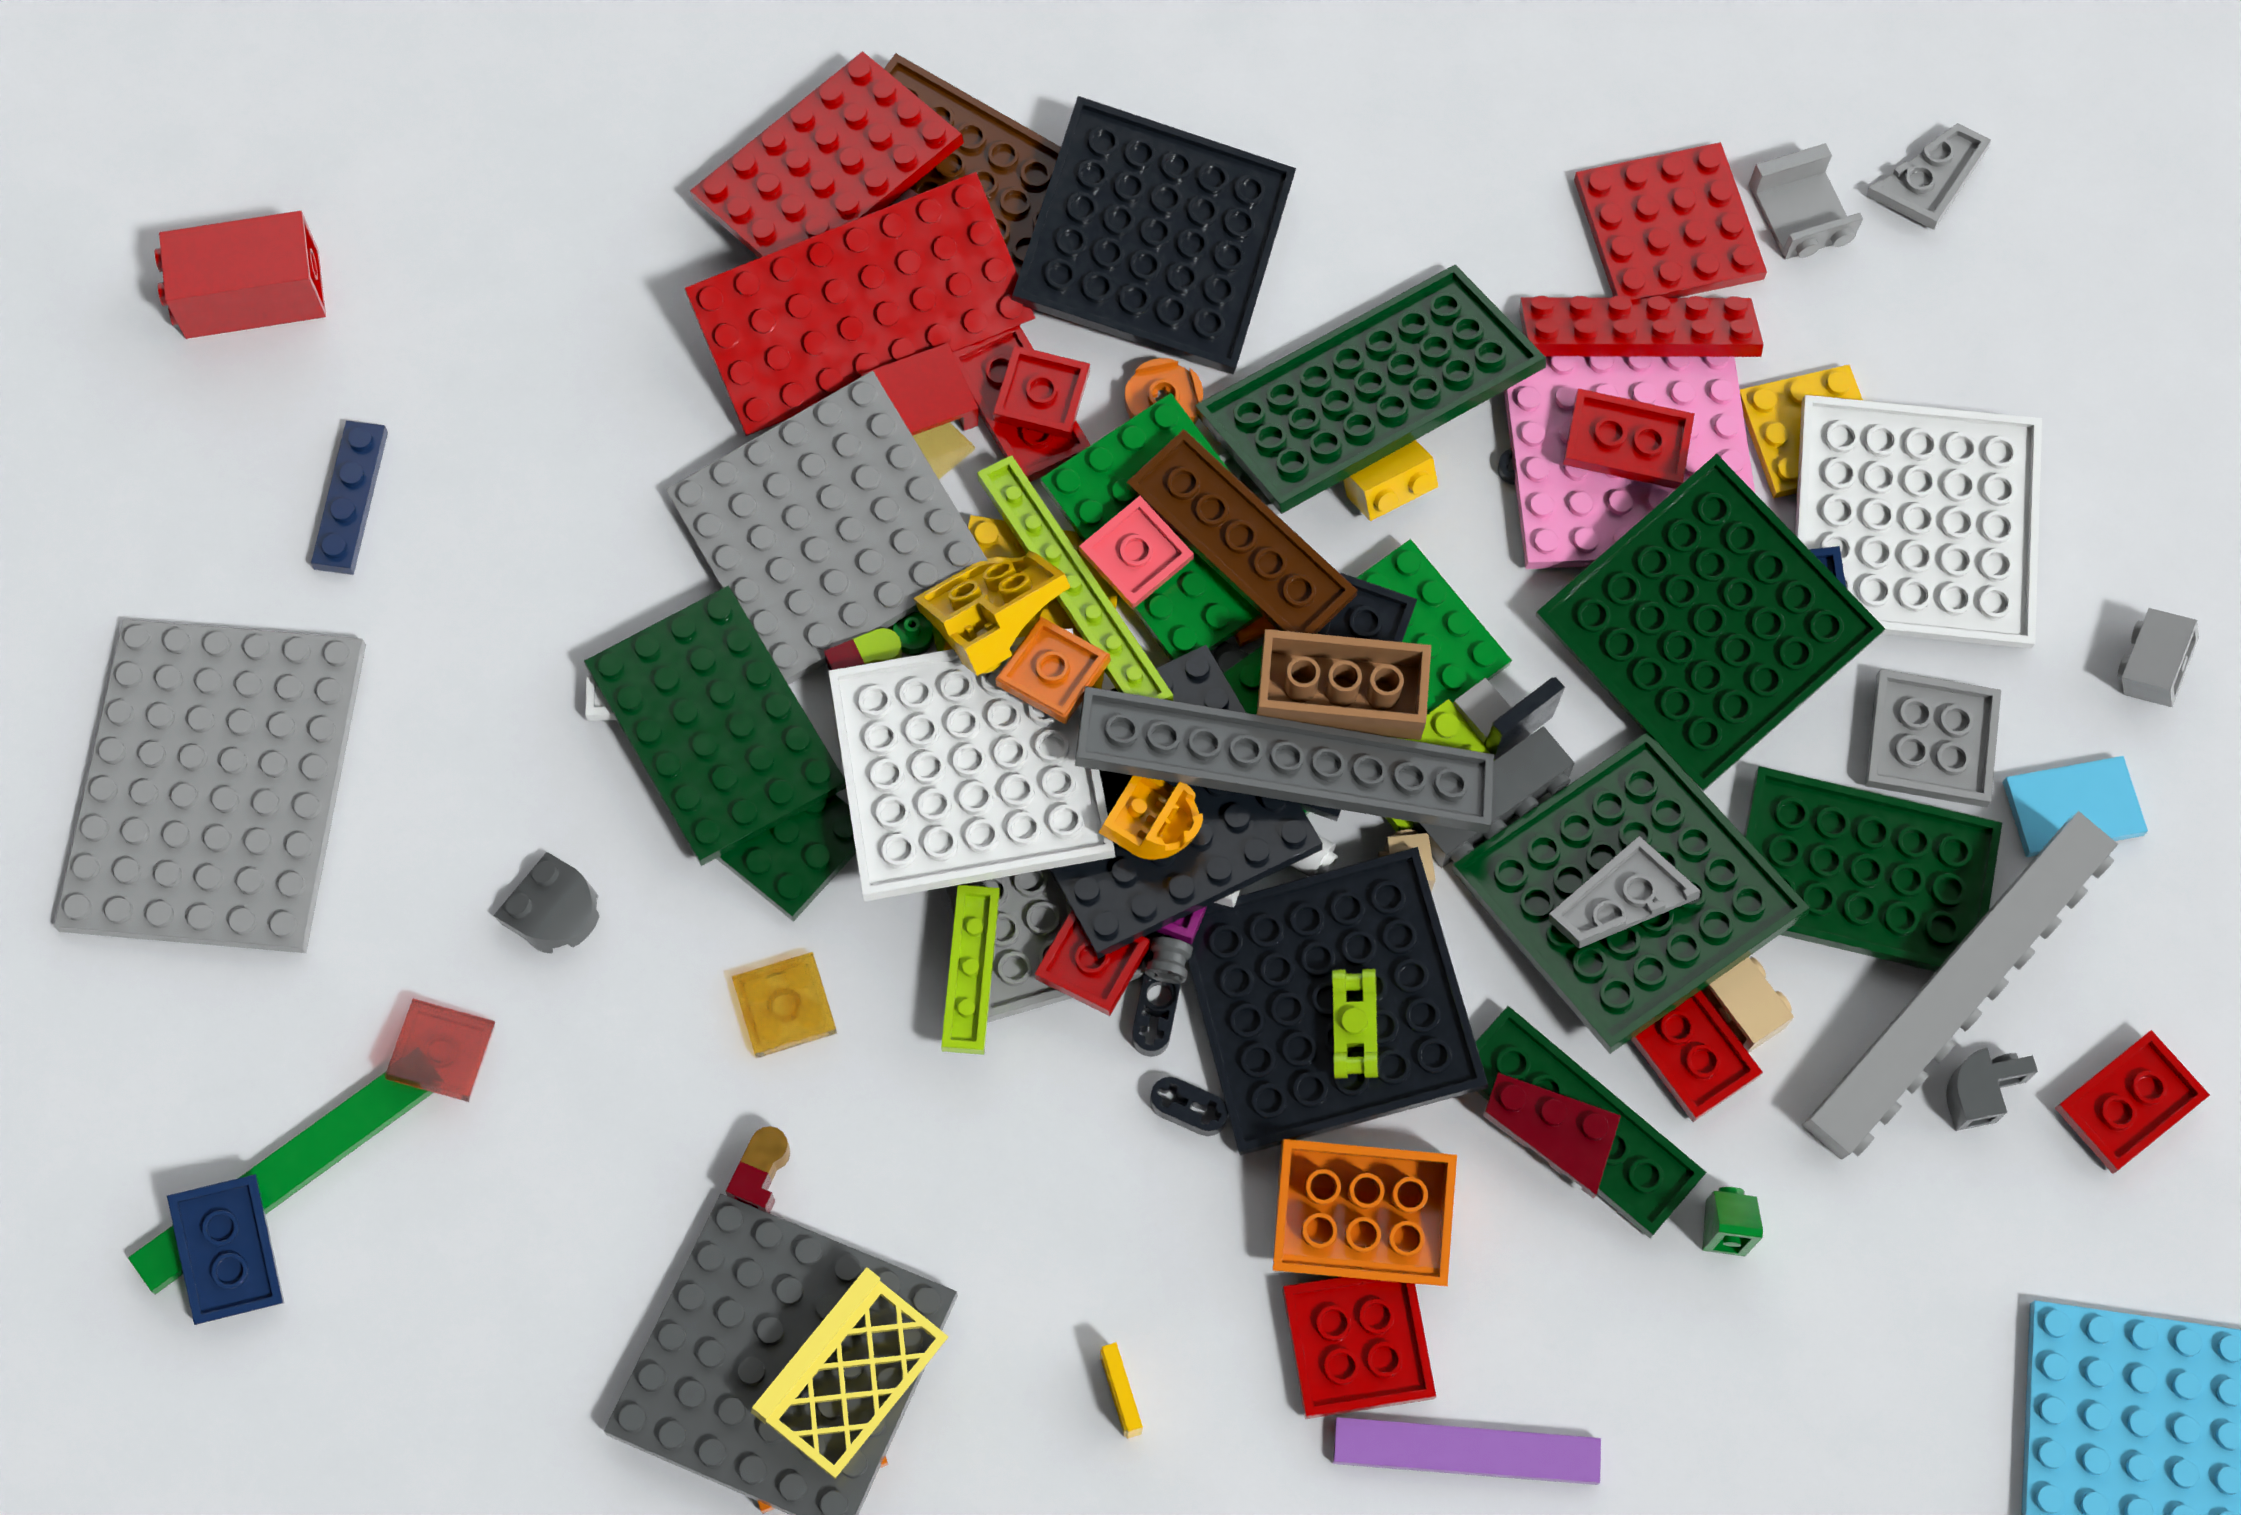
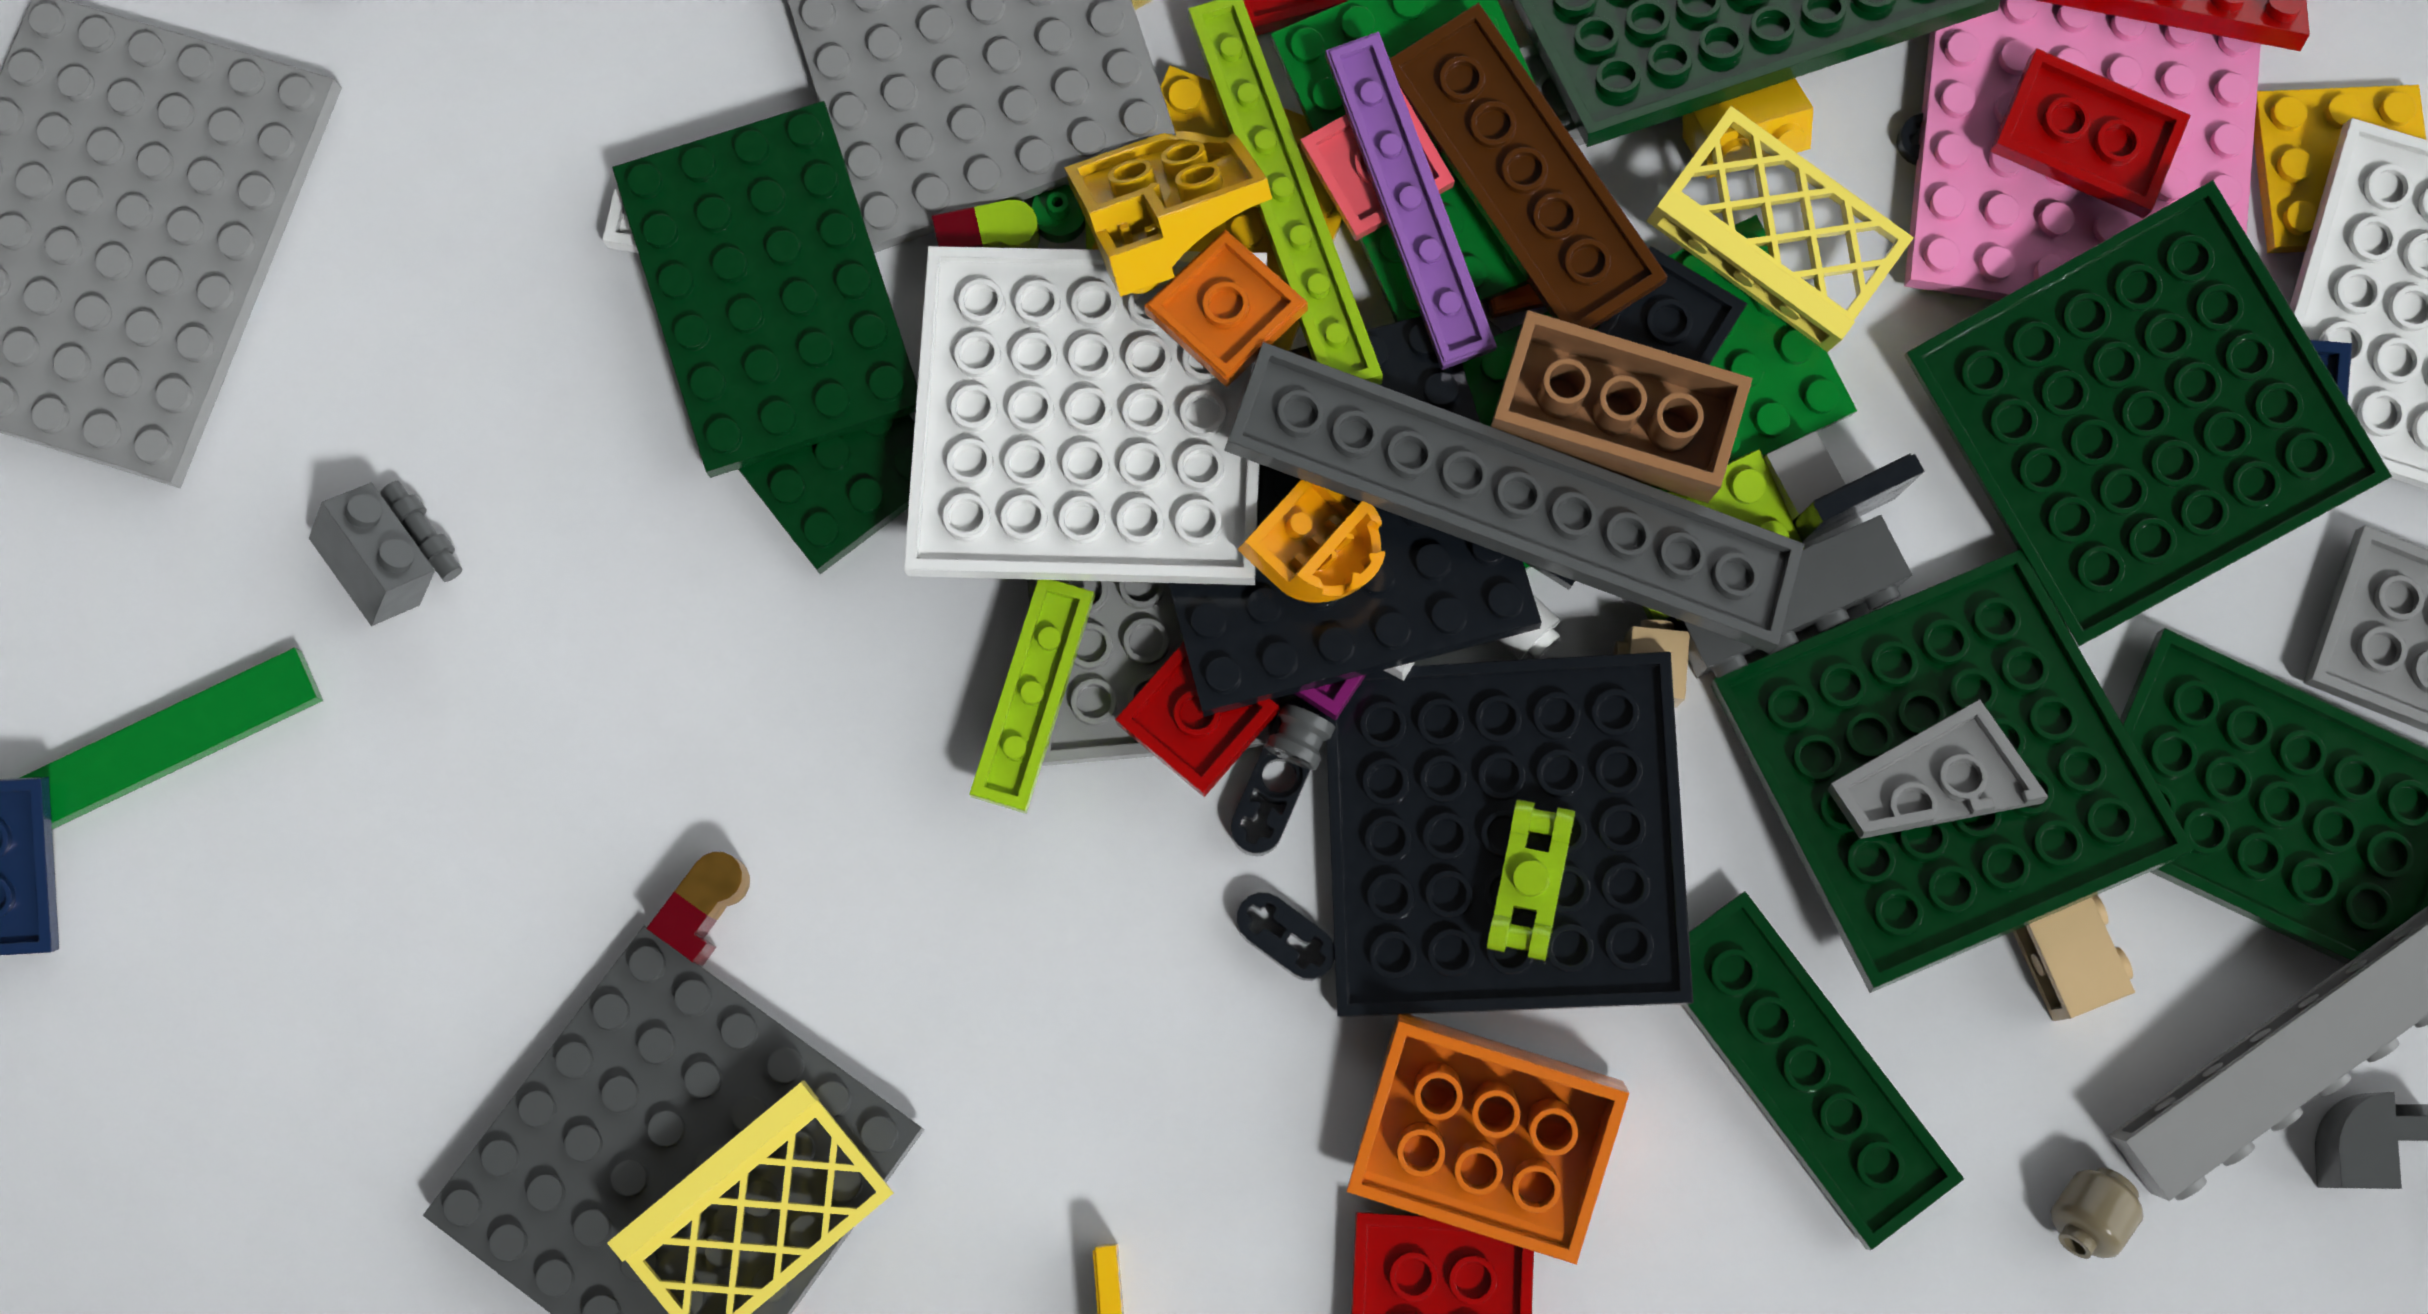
camera: 15 degrees right, 10 degrees up
(440, 1050) = (320, 657): clear red tile -> none
(469, 965) = (374, 553): none -> dark grey brick
(551, 906) = (506, 491): dark grey slope -> none
(784, 1005) = (782, 686): clear yellow plate -> none
(1166, 573) = (1410, 201): none -> medium lavender tile
(1414, 574) = (1761, 273): none -> light yellow fence
(1556, 1127) = (1775, 1078): dark red wing -> none
(1697, 1056) = (1989, 1017): red plate -> none
(1731, 1222) = (1985, 1255): green slope -> none
(1804, 1177) = (2097, 1213): none -> dark tan head

